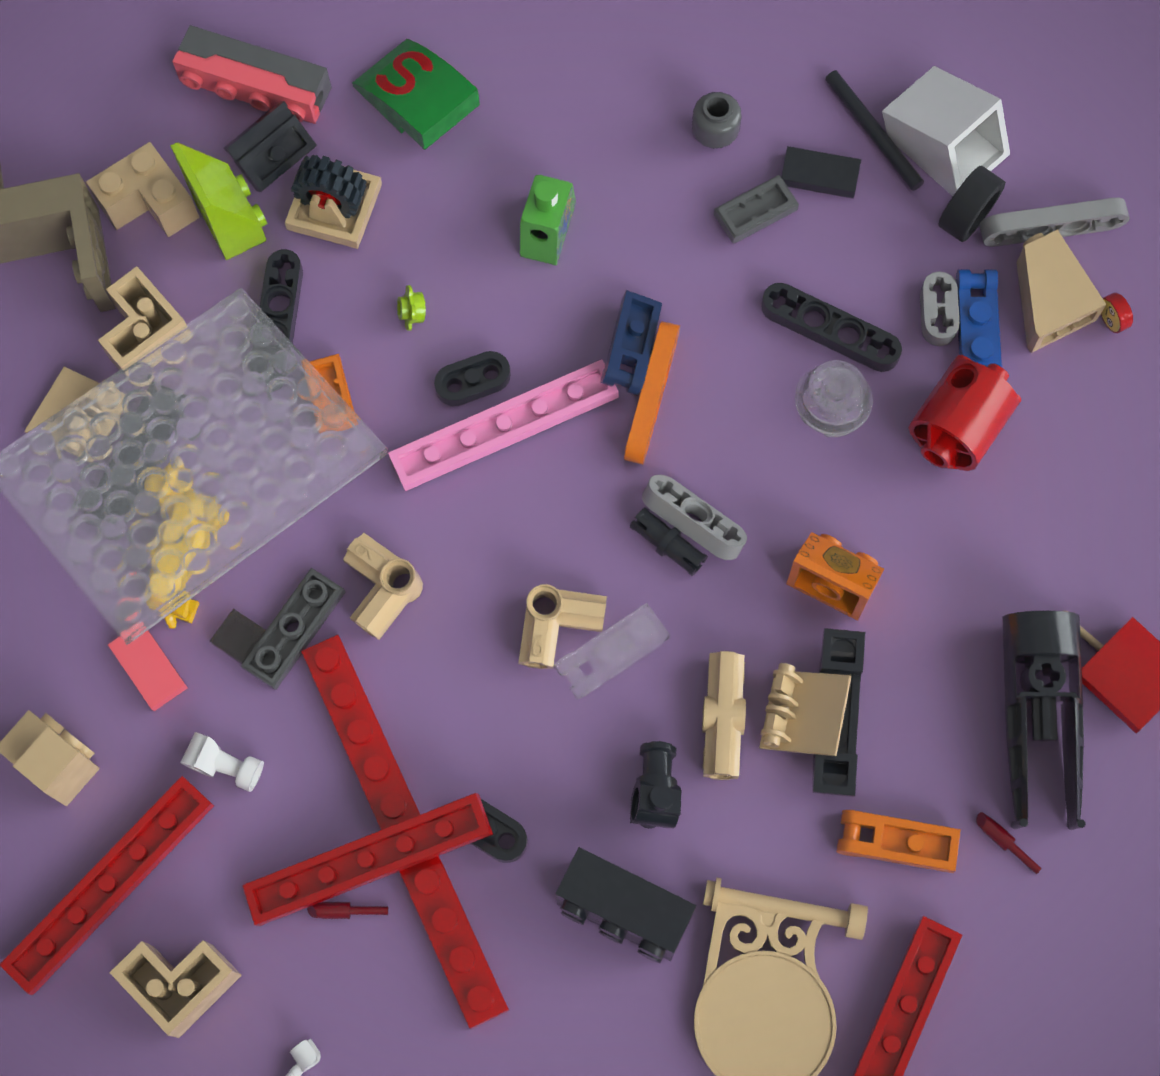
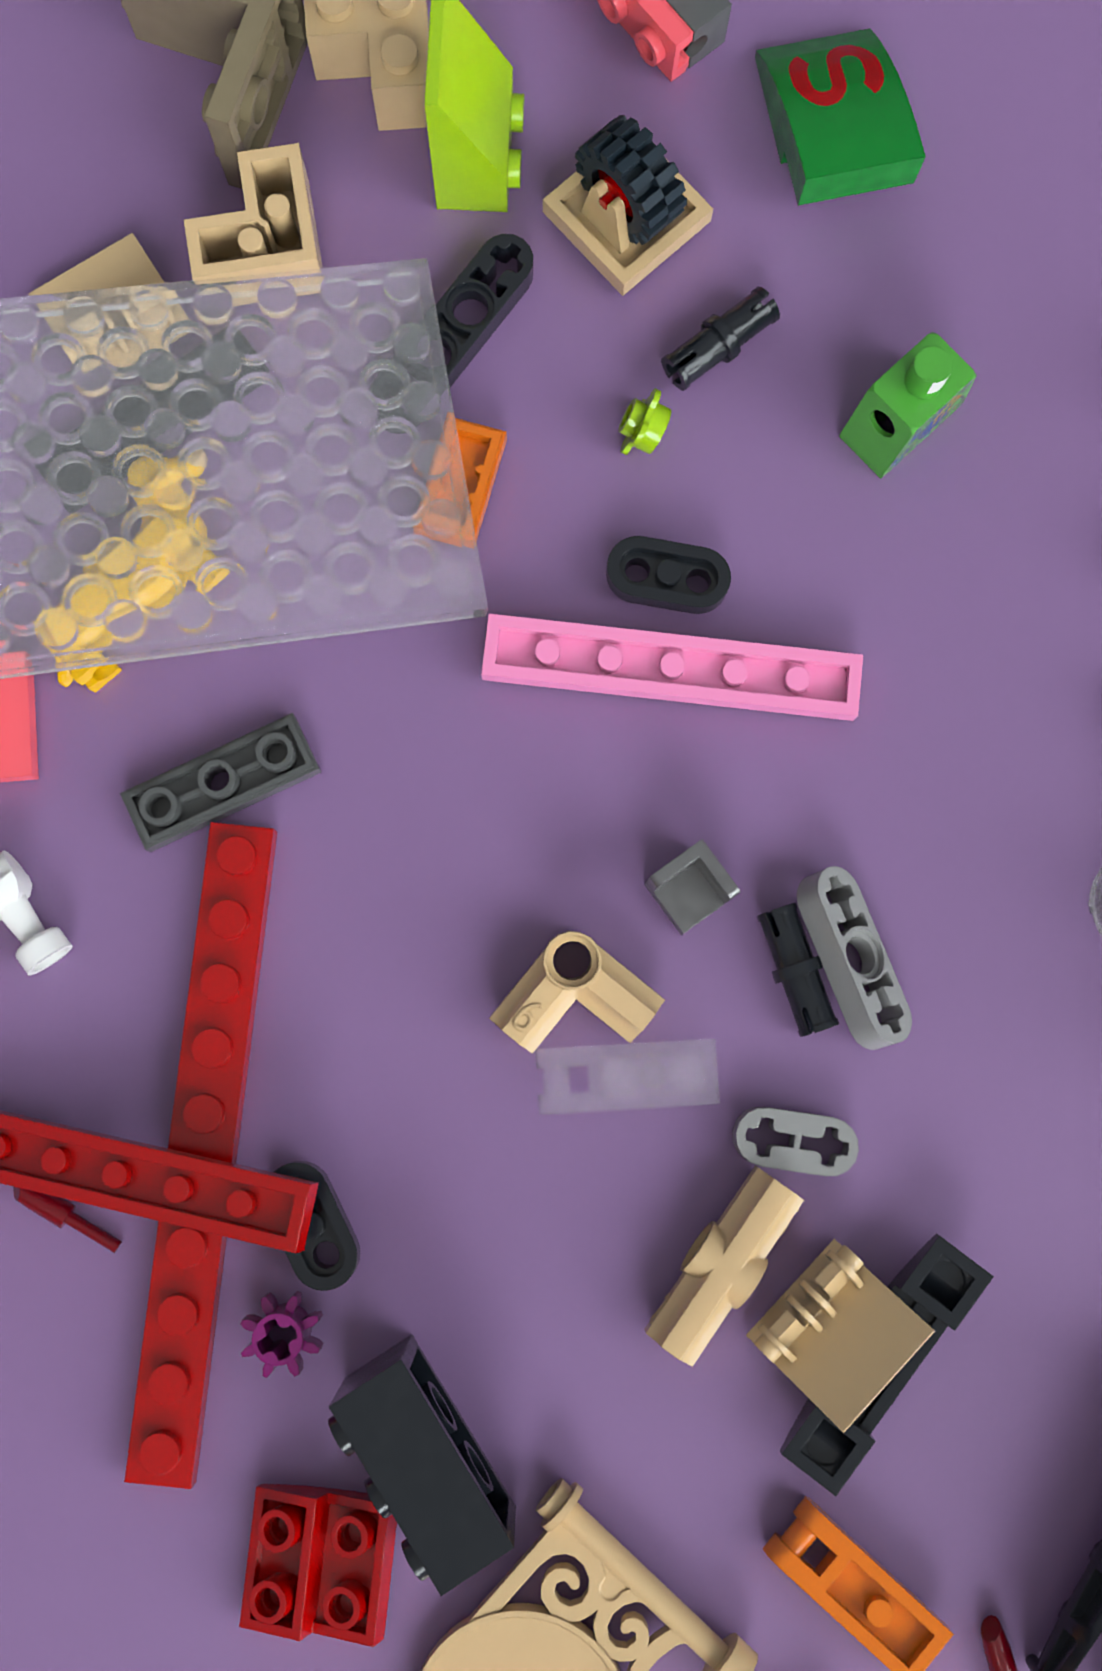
camera: 25 degrees right, 10 degrees up
(237, 636) = (141, 748): clear smoke tile -> none
(270, 146) = (588, 76): black plate -> none
(382, 568) = (360, 819): tan piece -> none
(425, 241) = (720, 338): none -> black pin
(506, 883) = (279, 1352): none -> magenta gear
(585, 530) = (691, 887): none -> flat silver panel
(603, 1007) = (318, 1564): none -> red slope
(632, 342) = (919, 655): dark blue plate -> none
(652, 393) = (904, 743): orange beam -> none
(656, 793) = (560, 1323): black connector -> none
(718, 622) = (792, 1156): none -> light grey beam
(834, 574) = (1003, 1167): orange slope -> none

